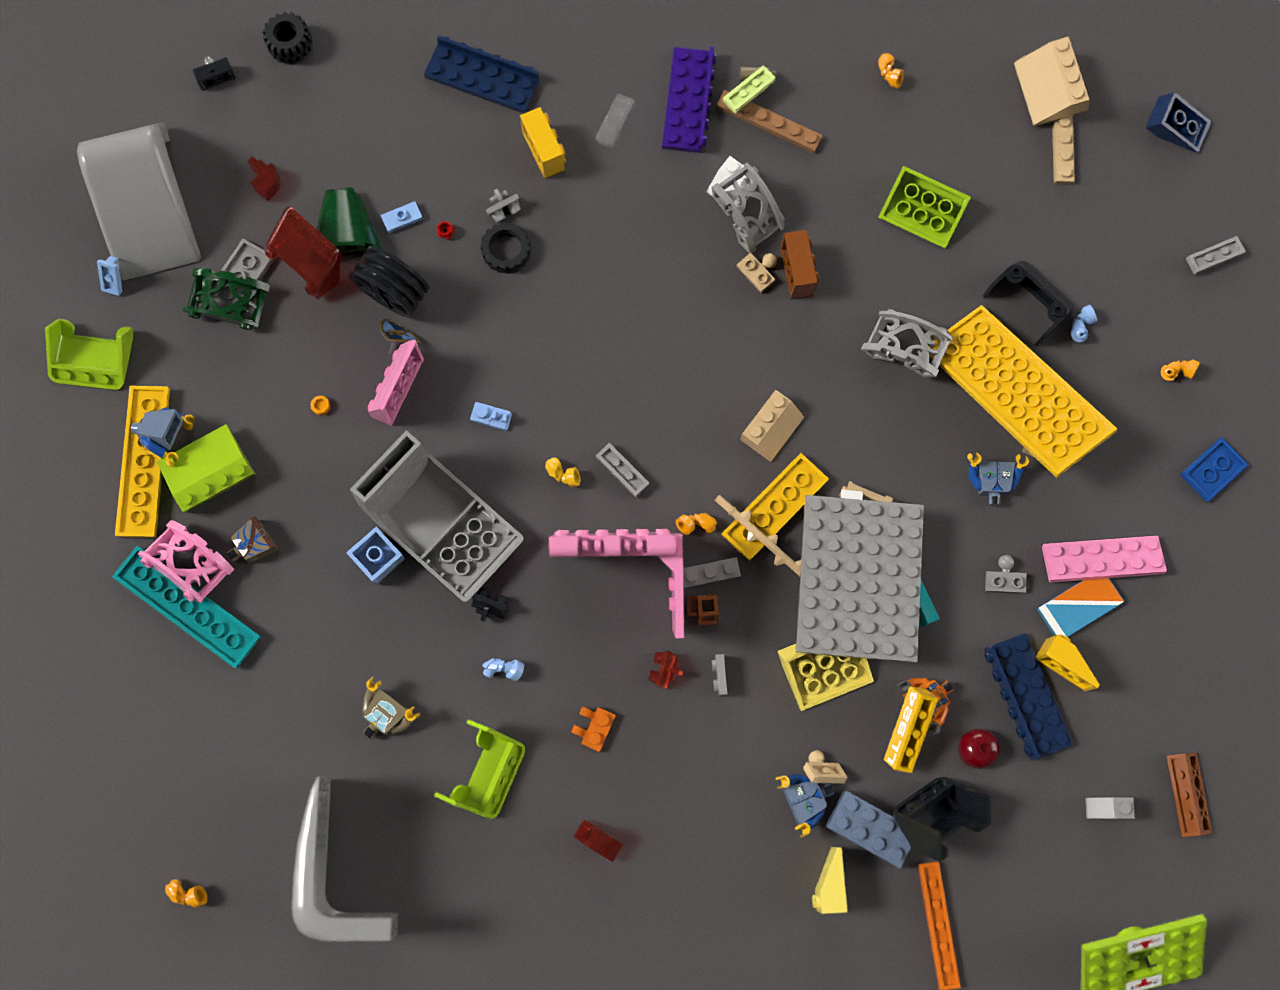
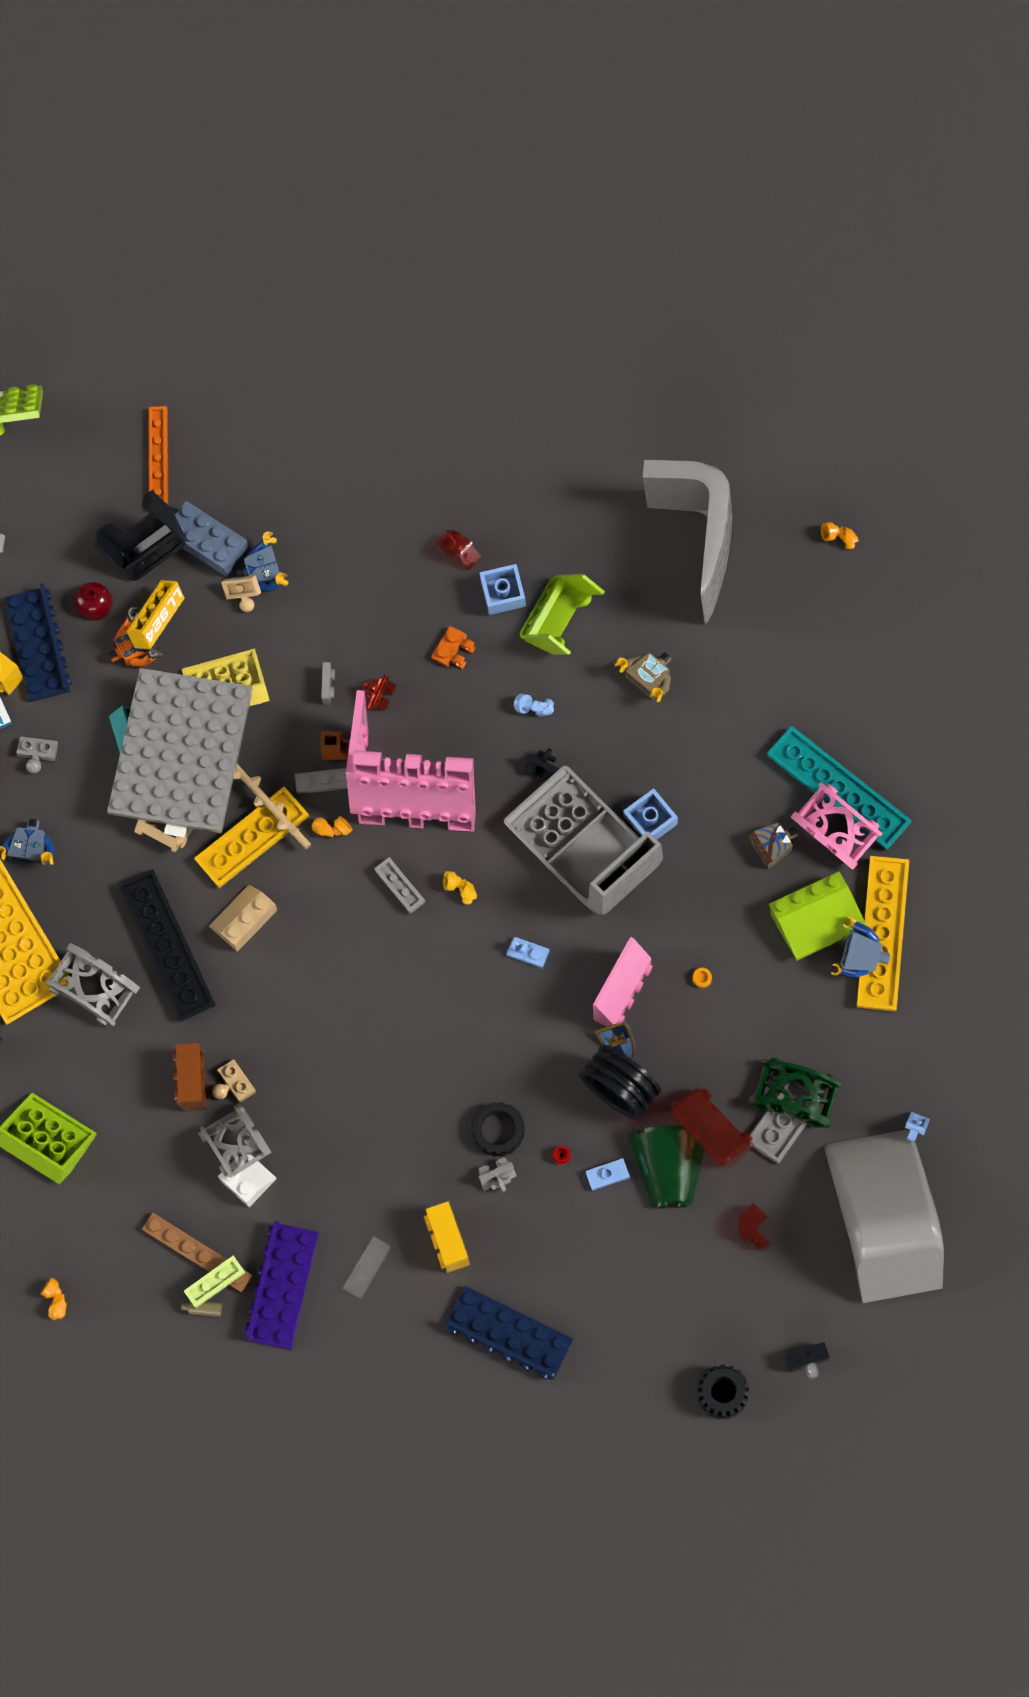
camera: 165 degrees left, 5 degrees down
(87, 359) = (939, 1045): lime windscreen -> none
(545, 795) = (502, 589): none -> light blue brick
(830, 889) = (252, 492): light yellow slope -> none
(842, 393) = (166, 945): none -> black plate

